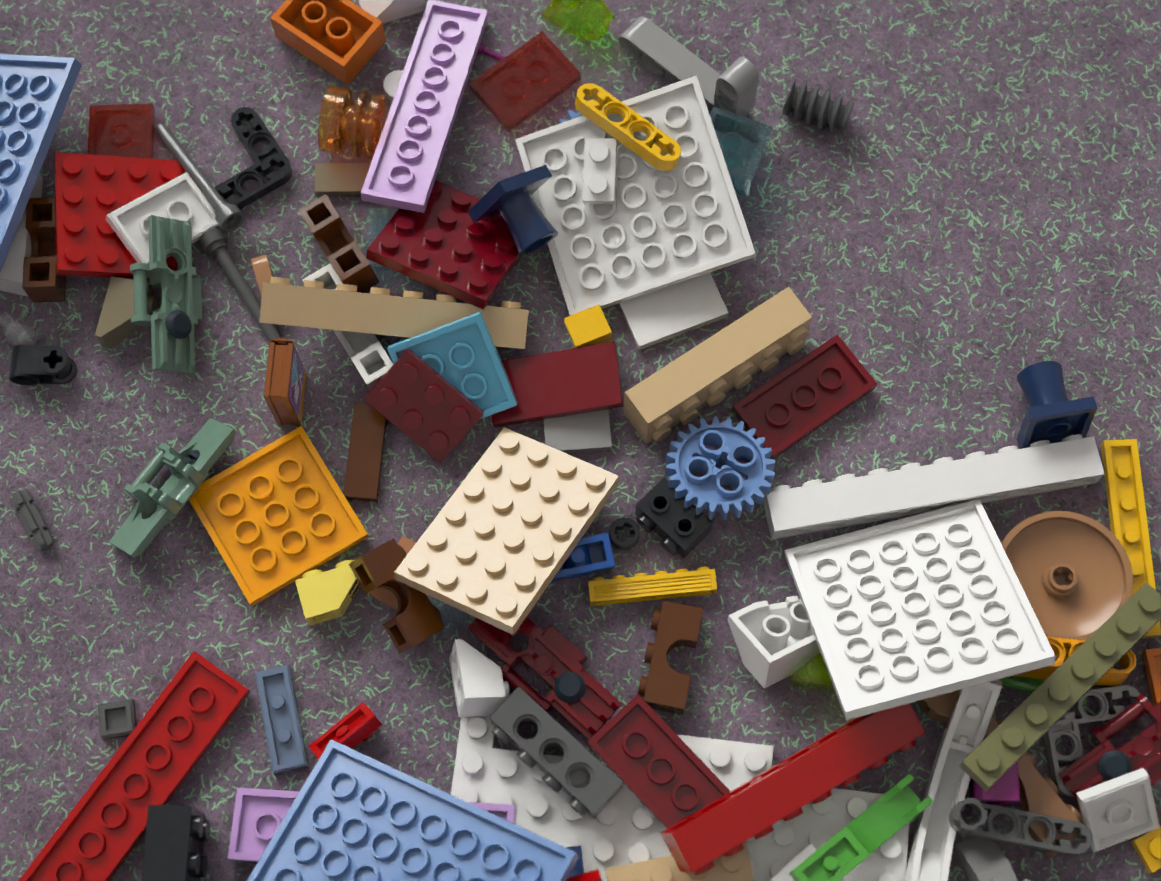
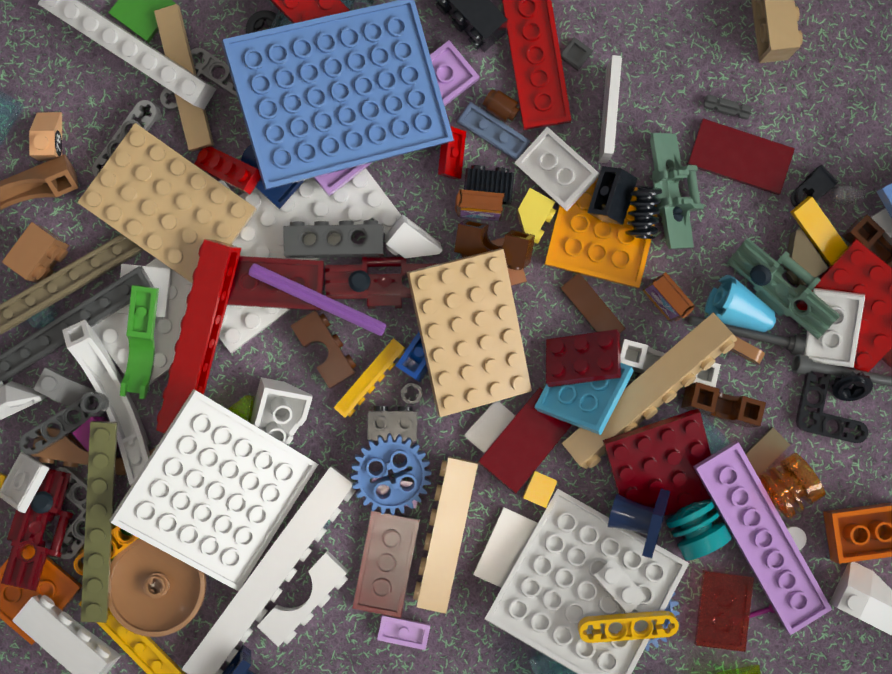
camera: 135 degrees right, 15 degrees up
(73, 461) = (741, 156): none -> dark red tile
(80, 316) = (819, 230): none -> yellow tile
(145, 620) = (610, 109): none -> white tile
(205, 159) = (861, 386): none -> black gear
(220, 481) = (644, 212): none -> black piece
(230, 323) = (739, 306): none -> medium azure cone
(234, 529) = (612, 195): none -> black brick
(246, 735) = (501, 105): none -> reddish brown brick
(258, 613) = (557, 168): none -> white plate
(343, 665) = (490, 181): none -> black brick
(372, 644) = (479, 205): none -> dark orange piece
(476, 158) = (699, 532): none -> teal wheel
(631, 706) = (317, 299): none -> medium lavender axle
(846, 320) = (403, 632): none -> lavender plate
(957, 431) = (282, 621): none -> white arch

